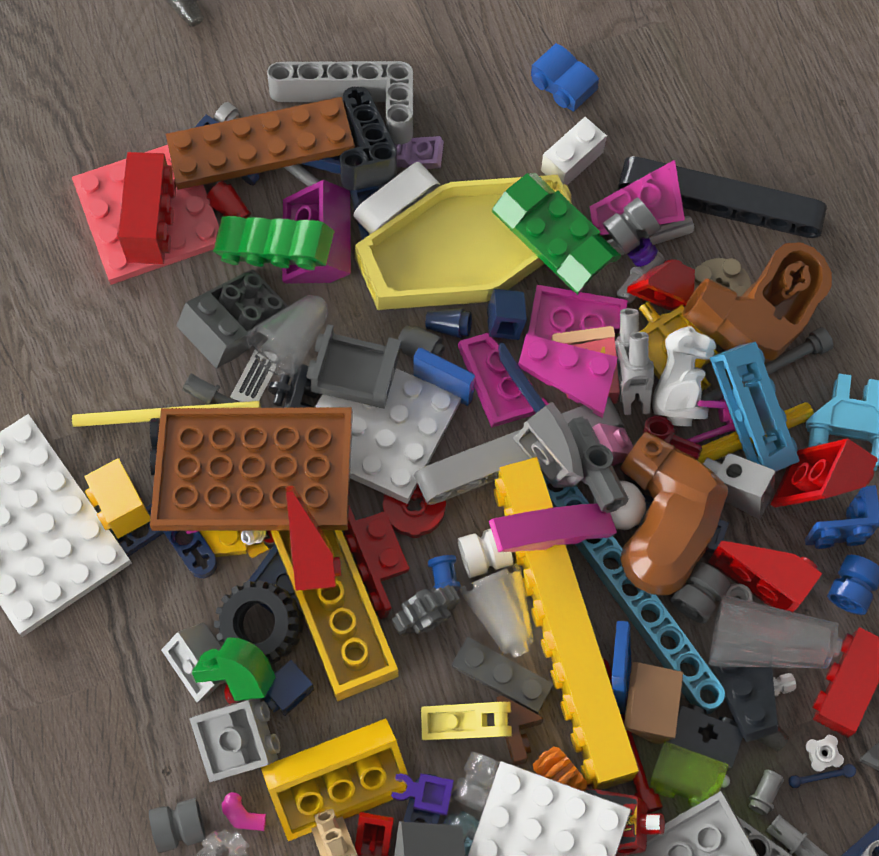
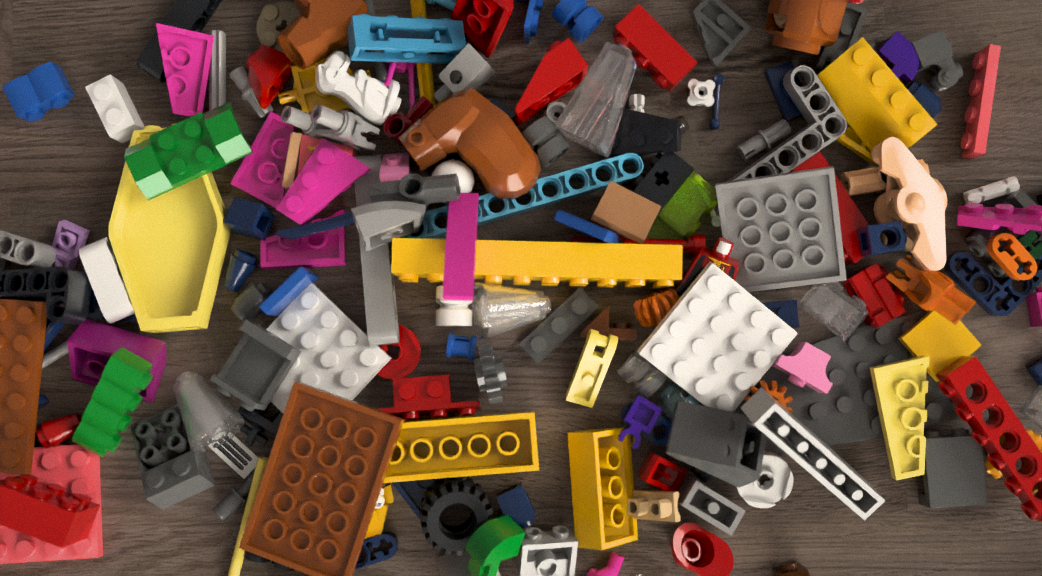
camera: 75 degrees left, 15 degrees up
(311, 551) = (412, 457): red slope -> none
(632, 225) = (205, 82): dark grey wheel -> none
(643, 253) = (230, 83): dark purple bush -> none
(766, 792) = (717, 150): light grey pin -> none

